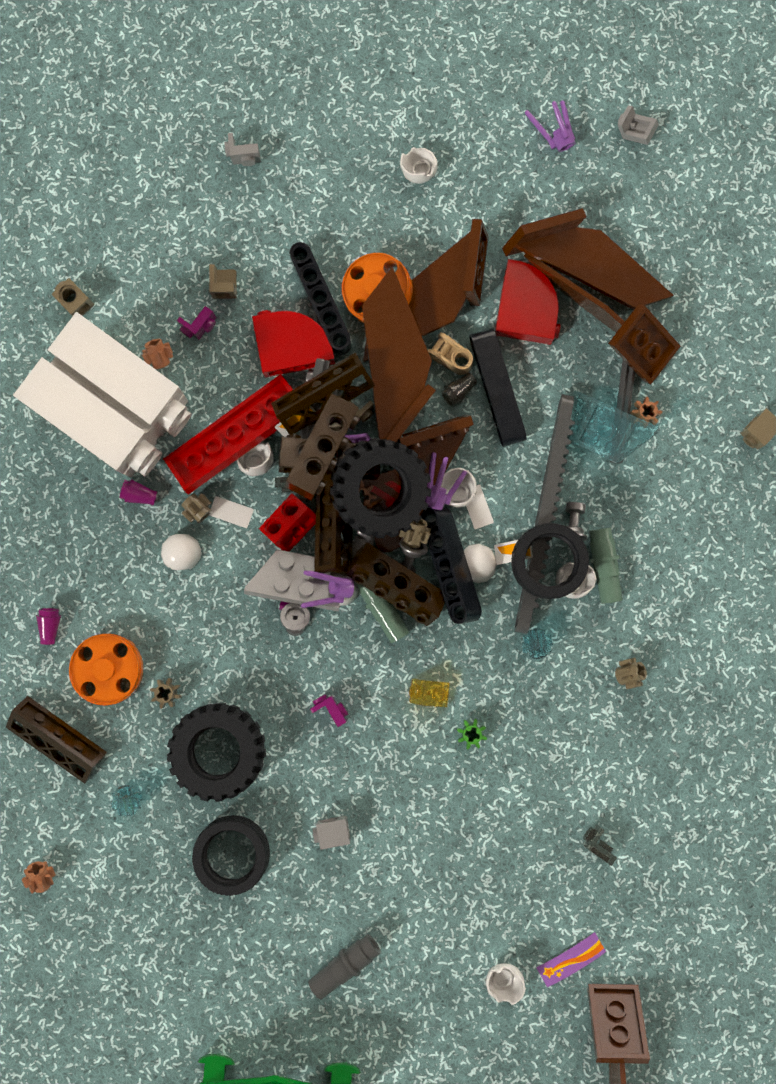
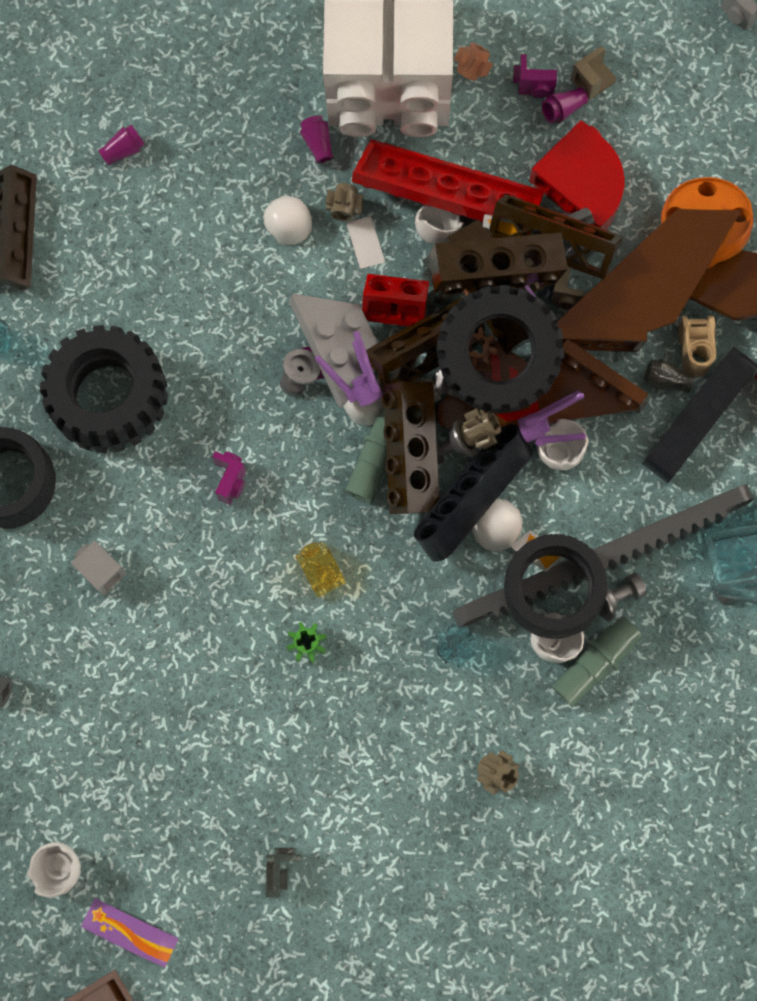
camera: 55 degrees right, 10 degrees down
(106, 669) = (115, 227): orange piece -> none
(171, 696) = (133, 308): dark tan gear -> none
(229, 317) = (563, 104): none -> magenta cone
(317, 288) = (657, 164): black beam -> none
(479, 510) = (556, 487): white sticker -> none

